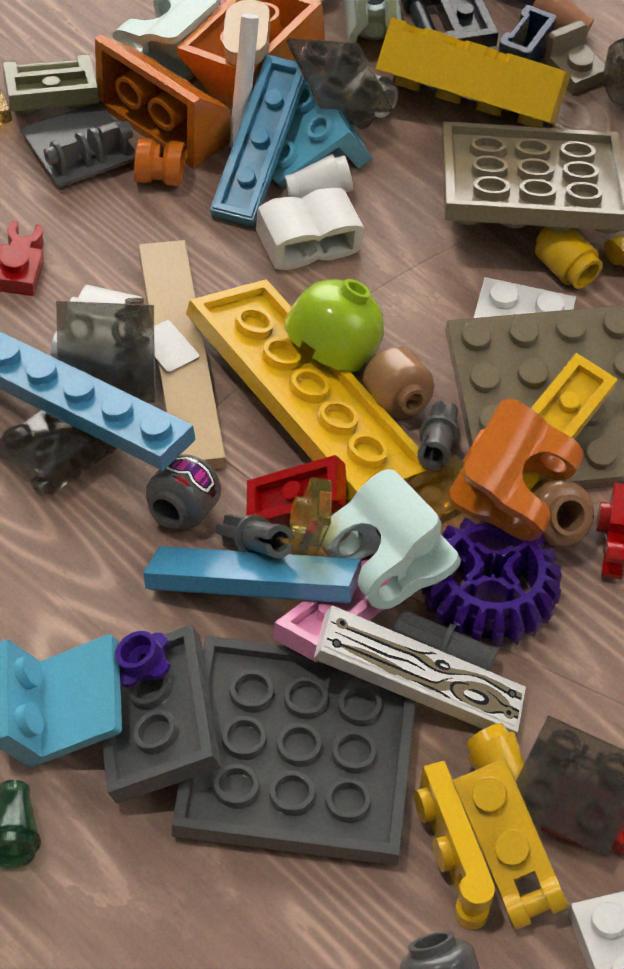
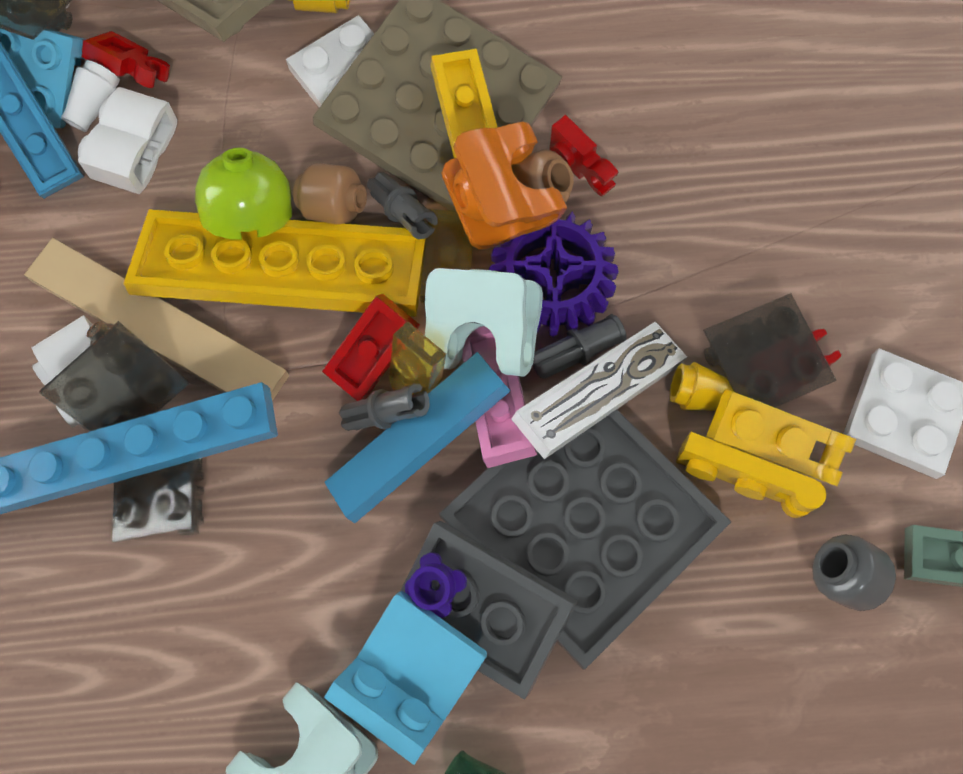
camera: 45 degrees left, 20 degrees up
(171, 347) = (150, 327): white sticker -> none
(183, 492) = (300, 429): dark grey head -> none
(373, 175) = (125, 57): none -> red plate

